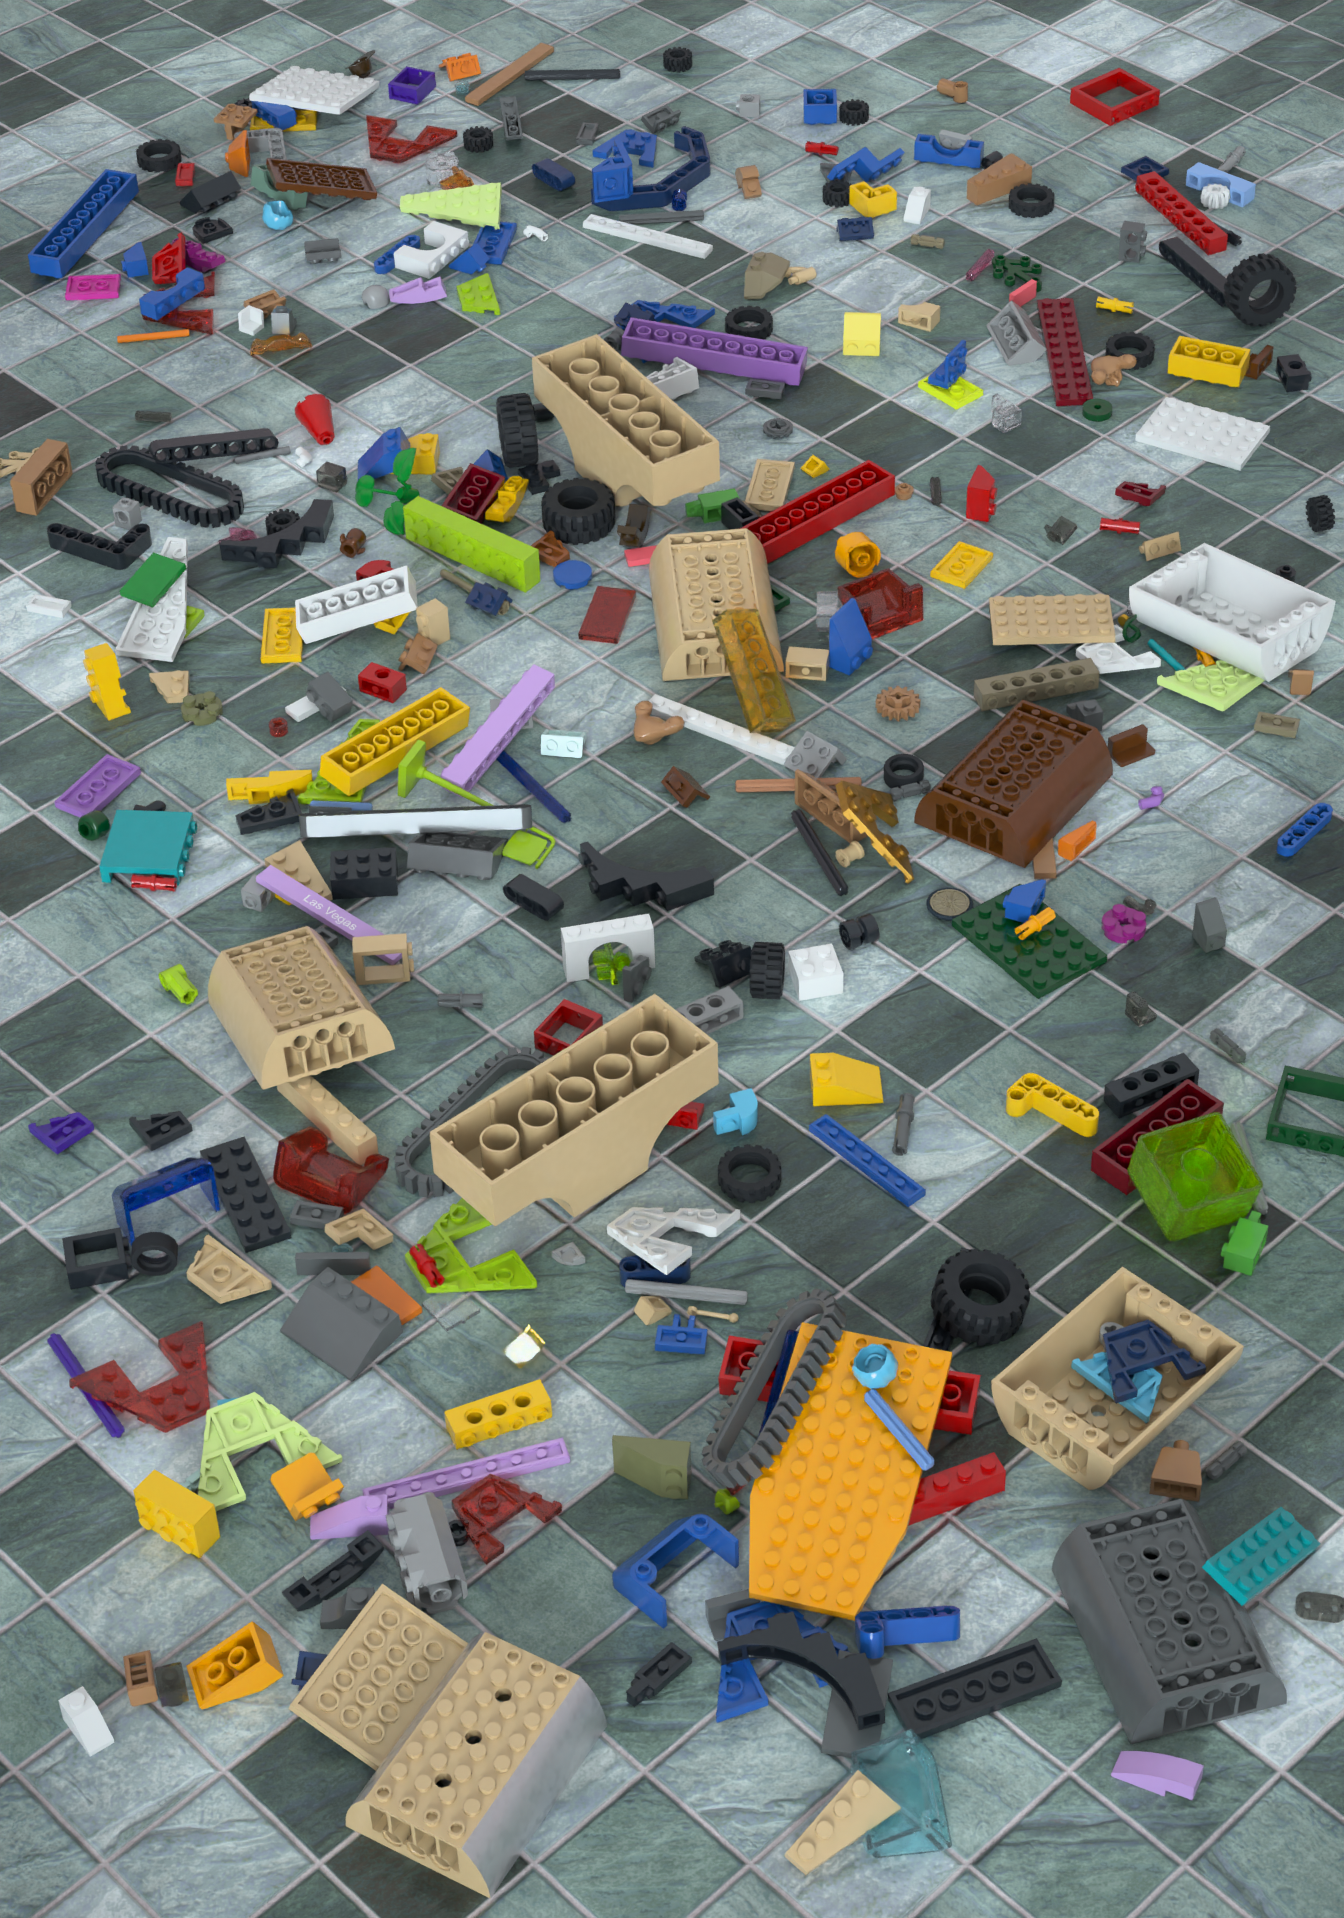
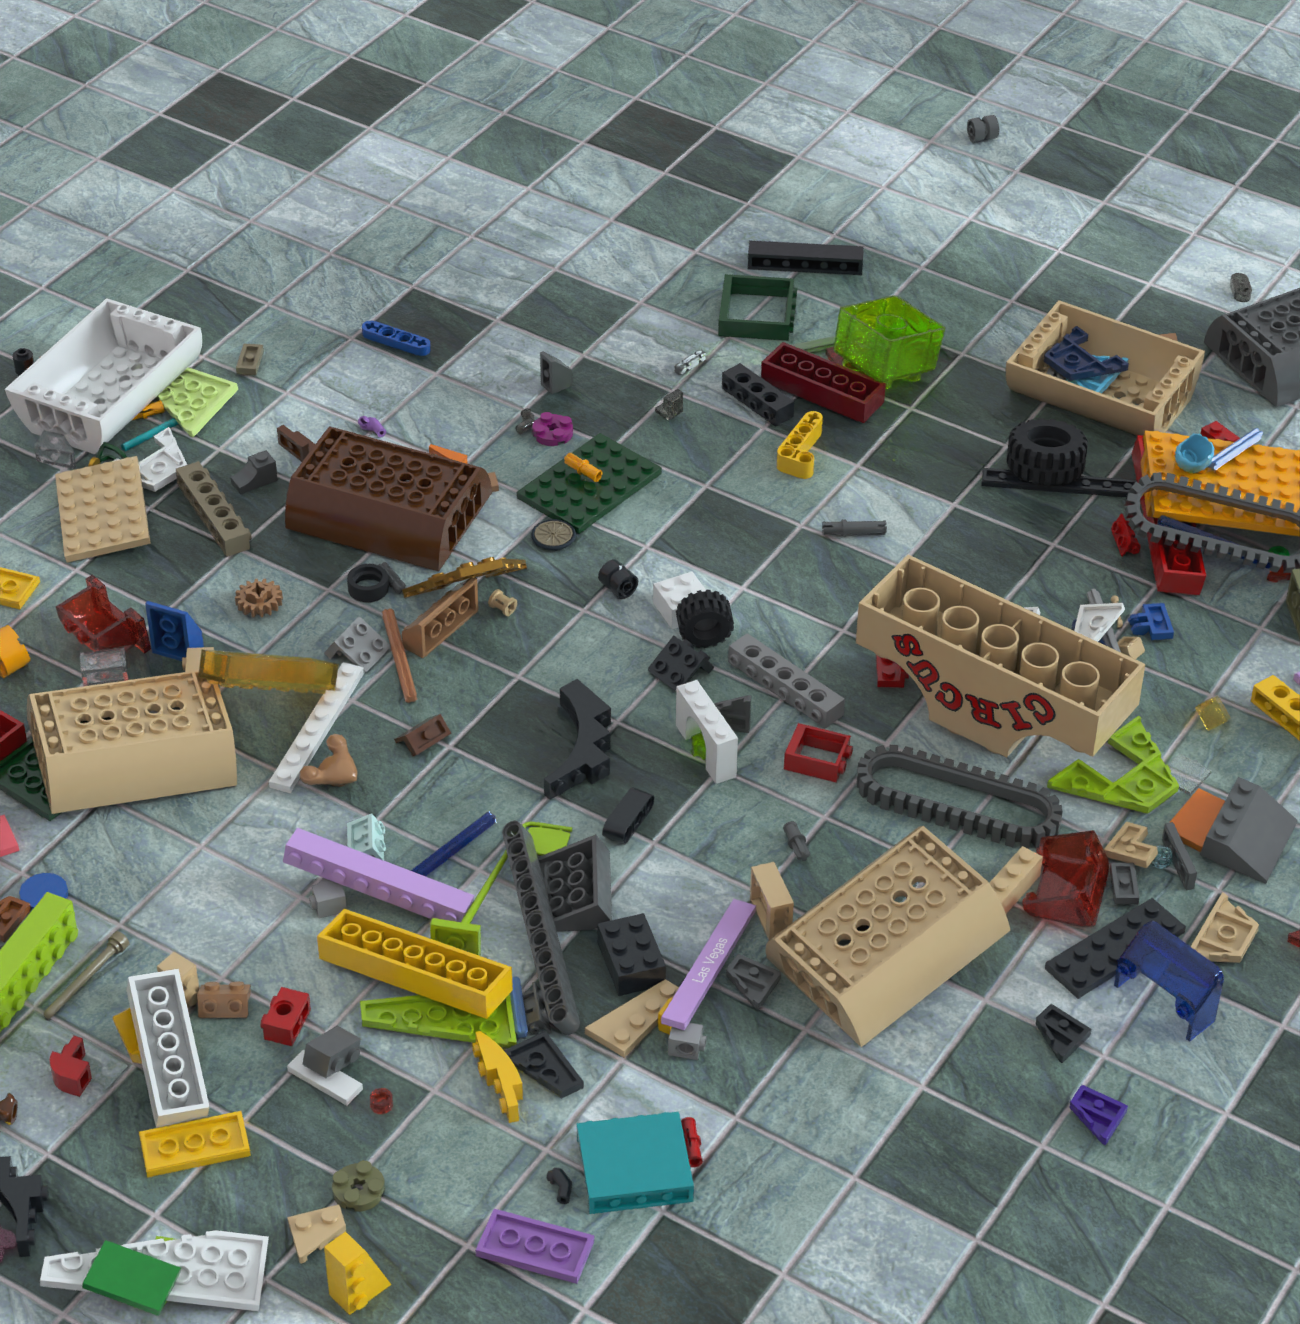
camera: 105 degrees left, 0 degrees up
(93, 825) = (610, 1225): dark green head -> none
(100, 1272) = (1262, 1051): black window -> none
(154, 1241) = (1238, 979): black tyre -> none
(178, 982) = (845, 1077): lime piece -> none
(426, 1265) = (1160, 783): red pin -> none
(487, 598) = (112, 951): dark blue bracket -> none
(607, 614) = (120, 849): clear red tile -> none
(819, 852) = (500, 627): black axle -> none
(843, 1081) = (817, 571): yellow slope -> none
(867, 1160) = (901, 546): blue tile -> none
(1024, 900) = (556, 473): blue slope -> none
(1261, 1555) = (1235, 292): teal plate -> none

